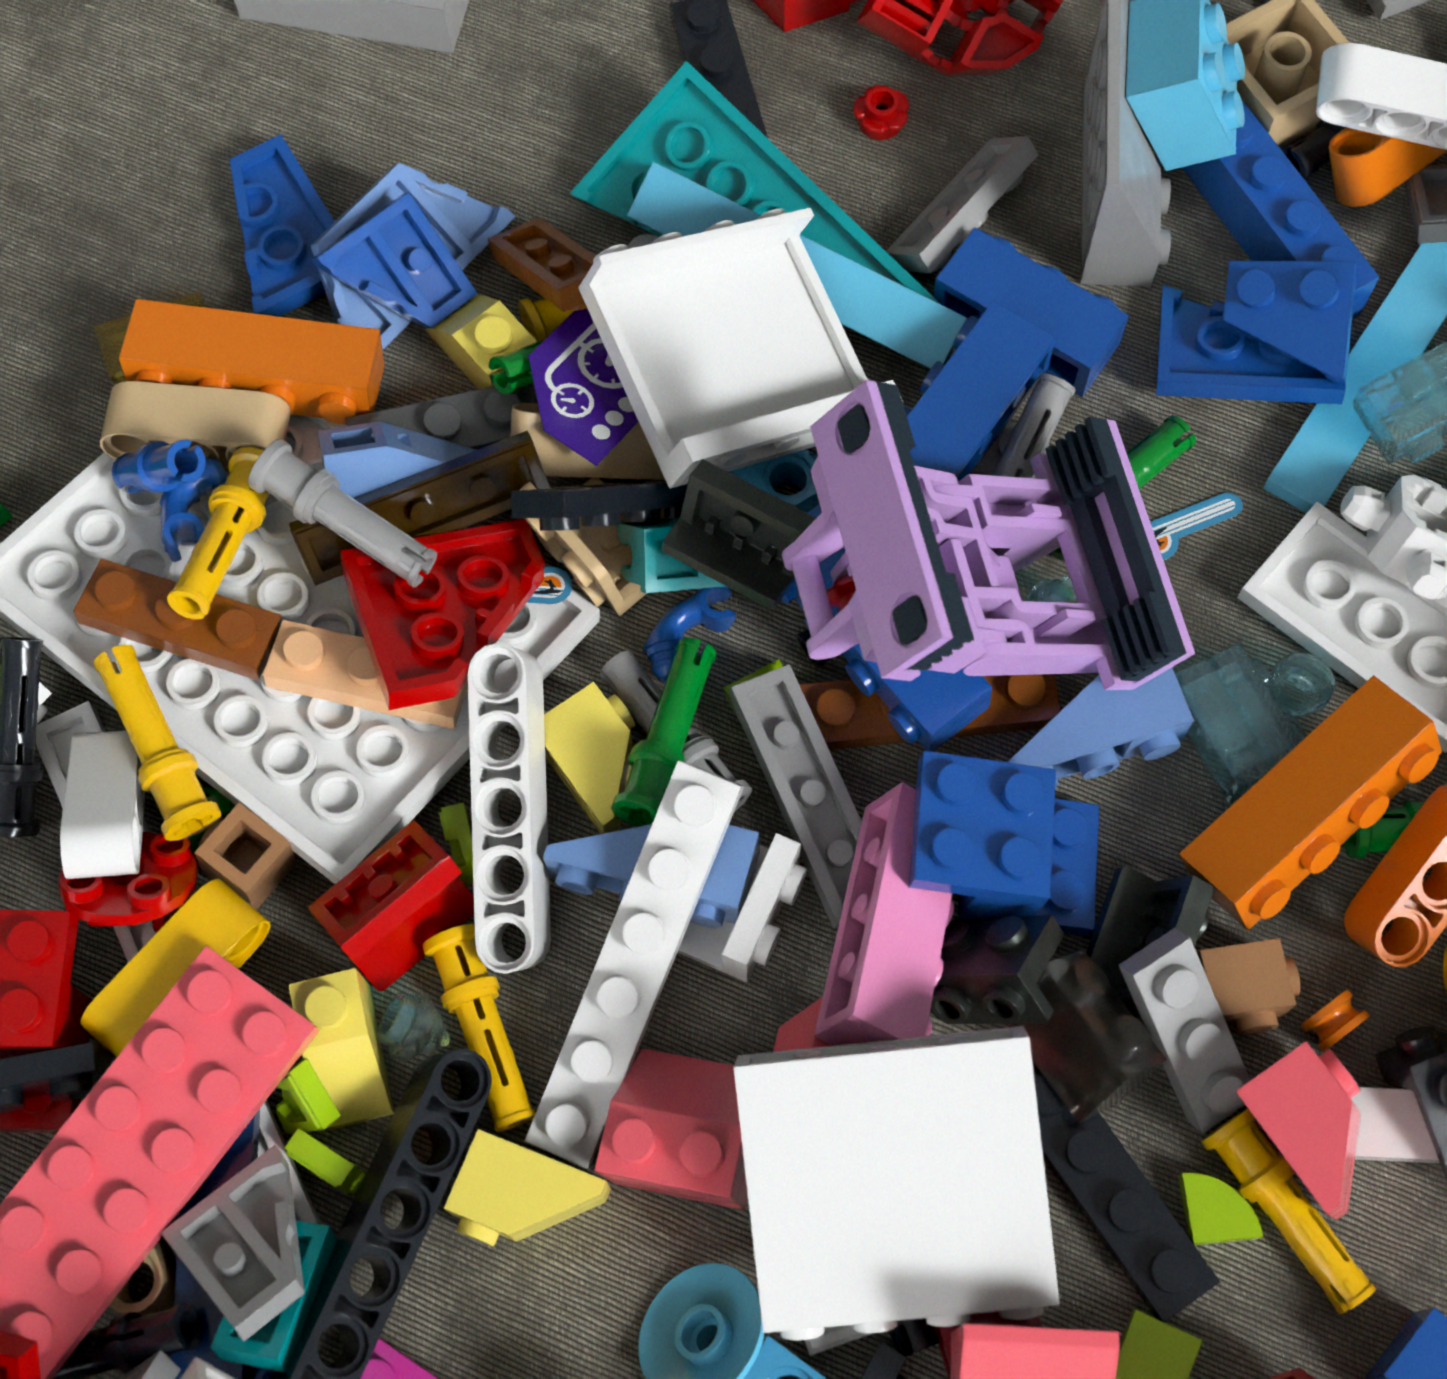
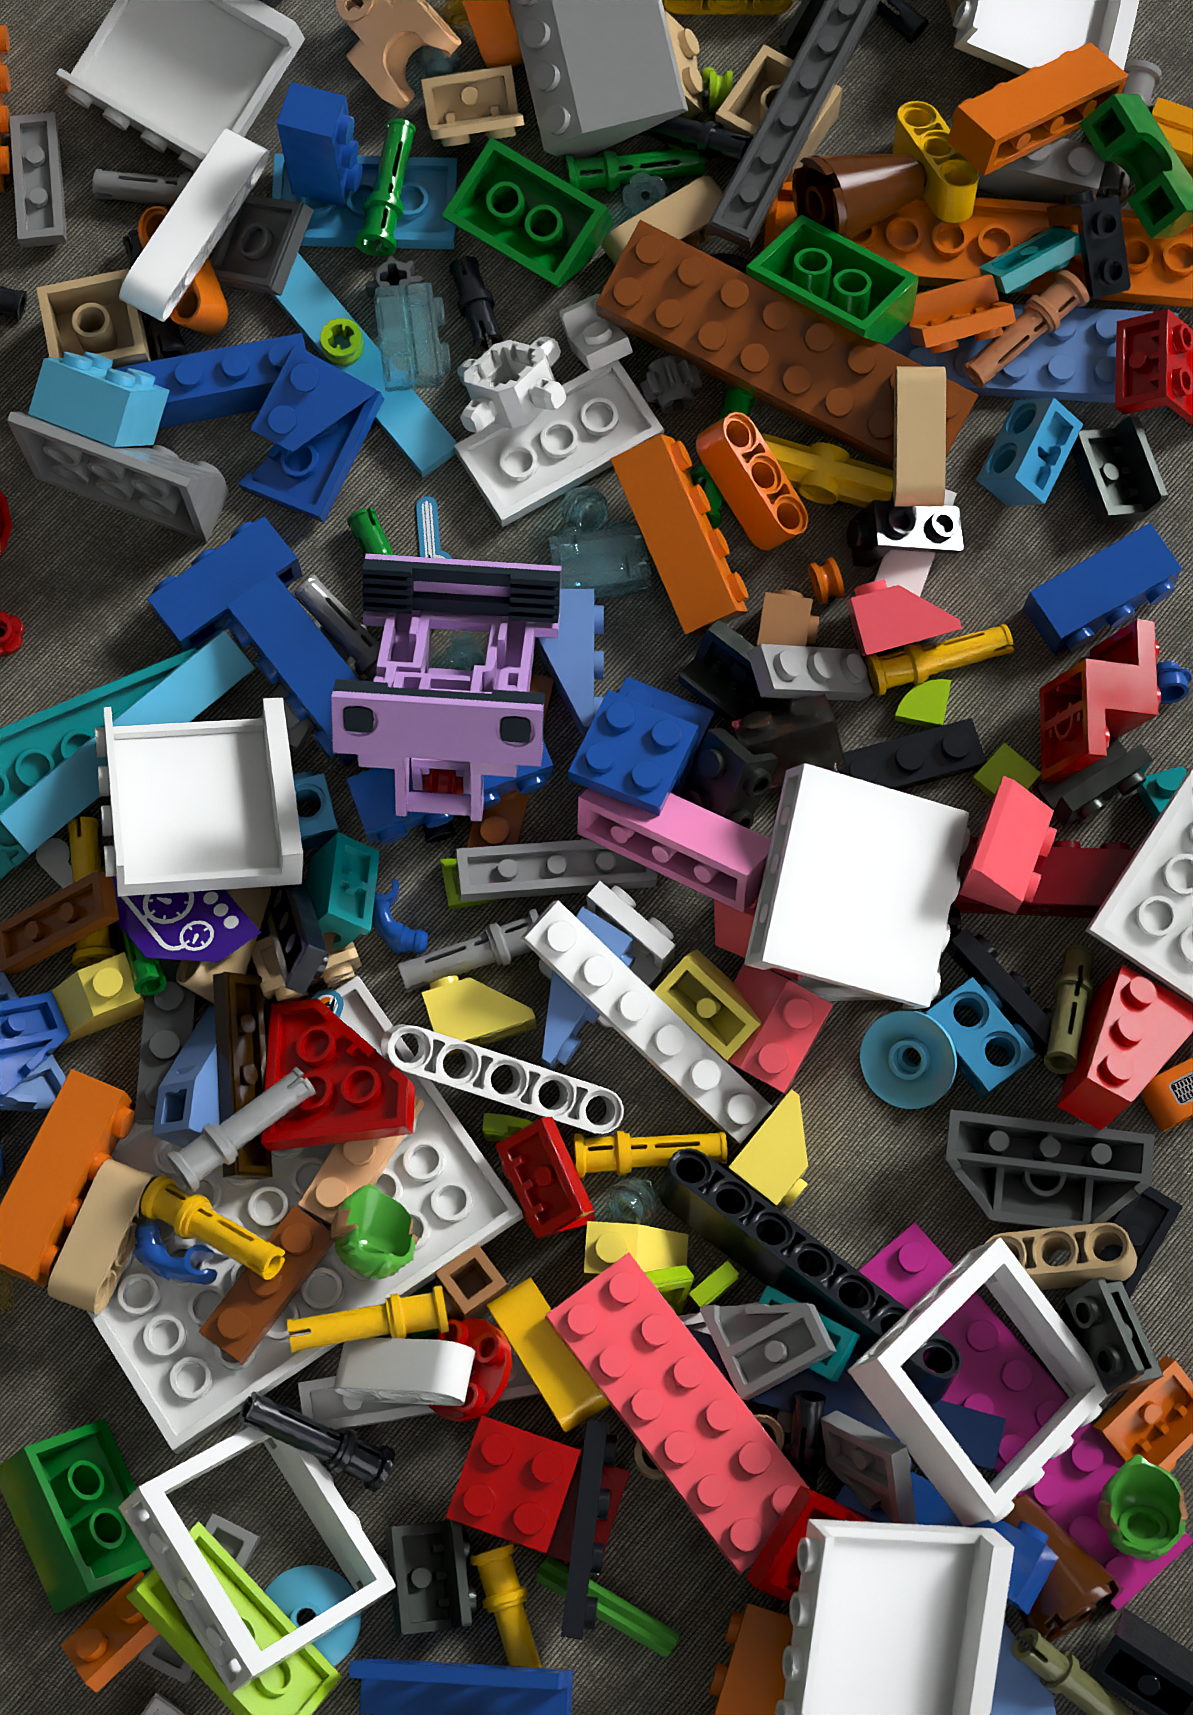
camera: 75 degrees left, 5 degrees up
(159, 466) = (141, 1264): blue pin -> none
(257, 707) = (373, 1233): none -> bright green hair
(658, 754) = (498, 962): green pin -> none
(690, 1035) = (709, 1003): none -> light yellow slope
(736, 534) = (362, 843): pearl dark grey bracket -> none
(963, 204) = (112, 602): light grey plate -> none
(1402, 346) = (343, 327): none -> lime bush

